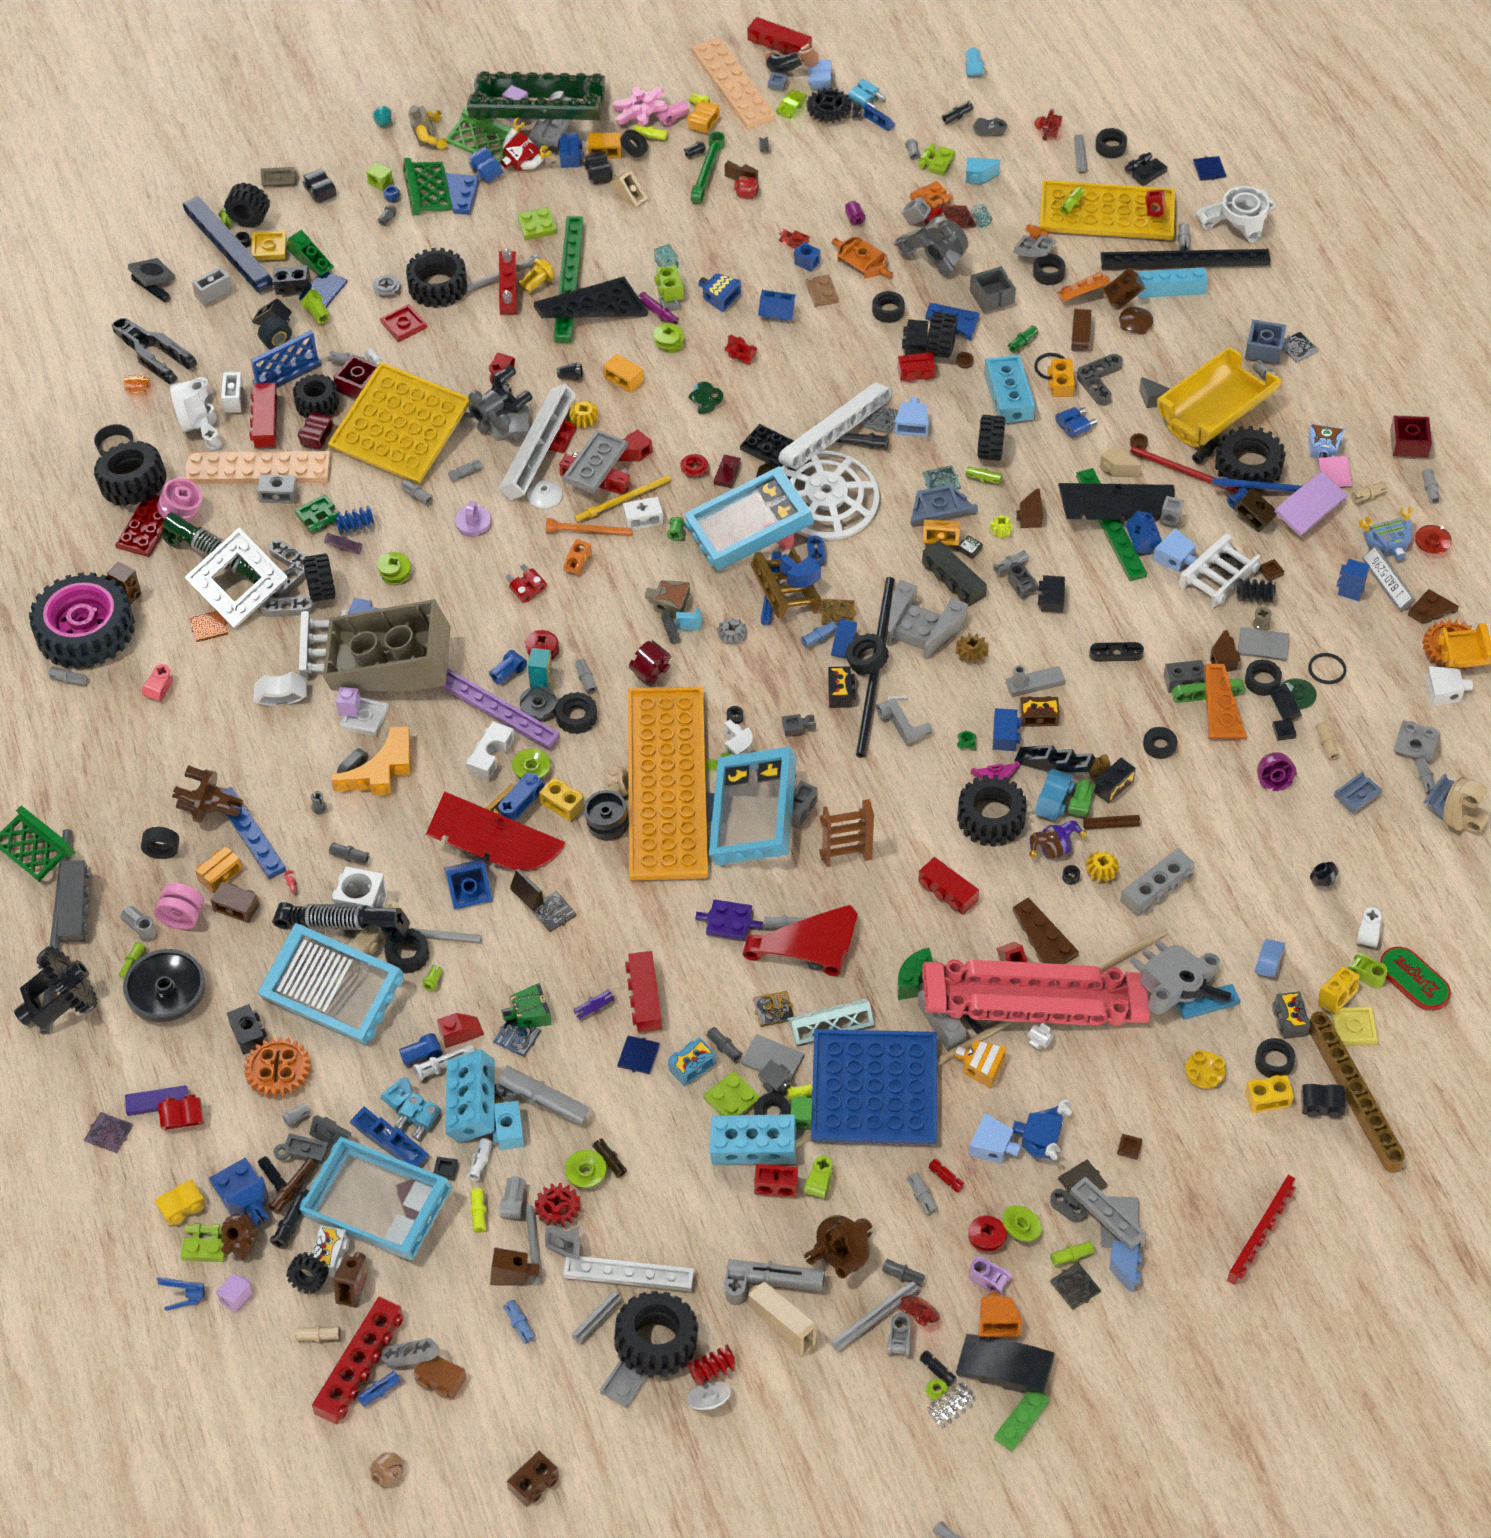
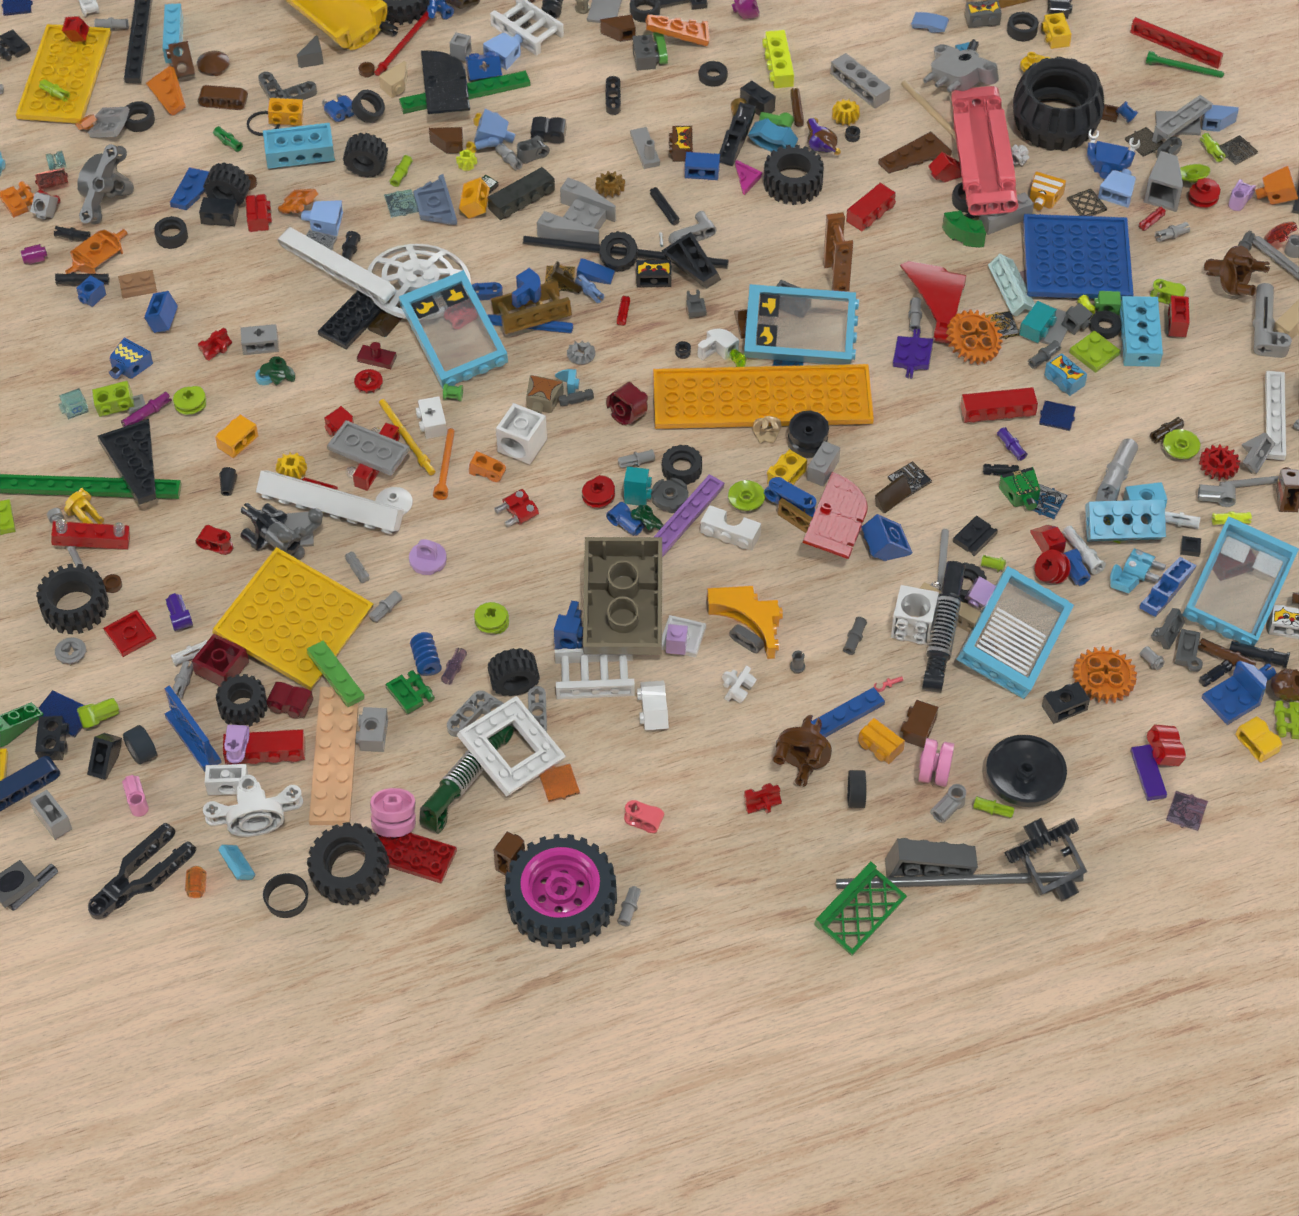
camera: 90 degrees left, 0 degrees up
(152, 408) = (236, 862): none -> medium azure plate
(161, 773) = (762, 799): none -> red hips
(222, 339) = (135, 795): none -> bright pink piece
(259, 387) = (236, 742): none -> lavender piece
(304, 760) = (735, 691): none -> white hips
(335, 456) = (335, 674): none -> bright green plate
(381, 950) = (979, 592): none -> lavender brick
(414, 352) = (179, 615): none -> dark purple piece
(419, 1025) = (1052, 567): none -> red piece
(459, 306) = (112, 583): none -> reddish brown tile
(472, 965) = (975, 535): none -> black plate
(503, 682) = (646, 515): none -> dark green plate
(560, 993) = (999, 469): none -> black axle
(569, 829) = (823, 463): none -> light grey brick
(608, 575) = (521, 433): none -> white brick
(726, 978) = (966, 330): none -> orange gear
(745, 380) = (259, 339): none -> light grey brick
(768, 1037) = (1038, 322): none -> teal brick
(790, 664) = (623, 310): none -> red axle
(793, 239) = (63, 299): clear red plate -> none
(824, 244) = (74, 278): none -> black pin
(830, 609) = (565, 278): none -> dark brown tile
(849, 716) = (691, 259): none -> black wedge
(884, 236) = (71, 233): none -> black pin
(931, 395) = (296, 199): none -> orange plate
(945, 698) = (664, 206): none -> black axle
(964, 737) = (711, 193): green plate -> none
(965, 1097) = (1081, 195): none -> clear smoke window
(992, 289) = (167, 158): dark grey piece -> none
(996, 1184) = (1165, 183): none -> light grey slope
(1043, 542) = (490, 131): none -> medium blue torso
(1067, 426) = (374, 99): none -> black tyre
(1121, 1035) = (1064, 81): none -> black tyre
(1124, 1158) = (1127, 112): none -> blue bush
(1187, 803) = (778, 59): none -> neon yellow brick
(1232, 1200) = (1154, 58): none -> green piece

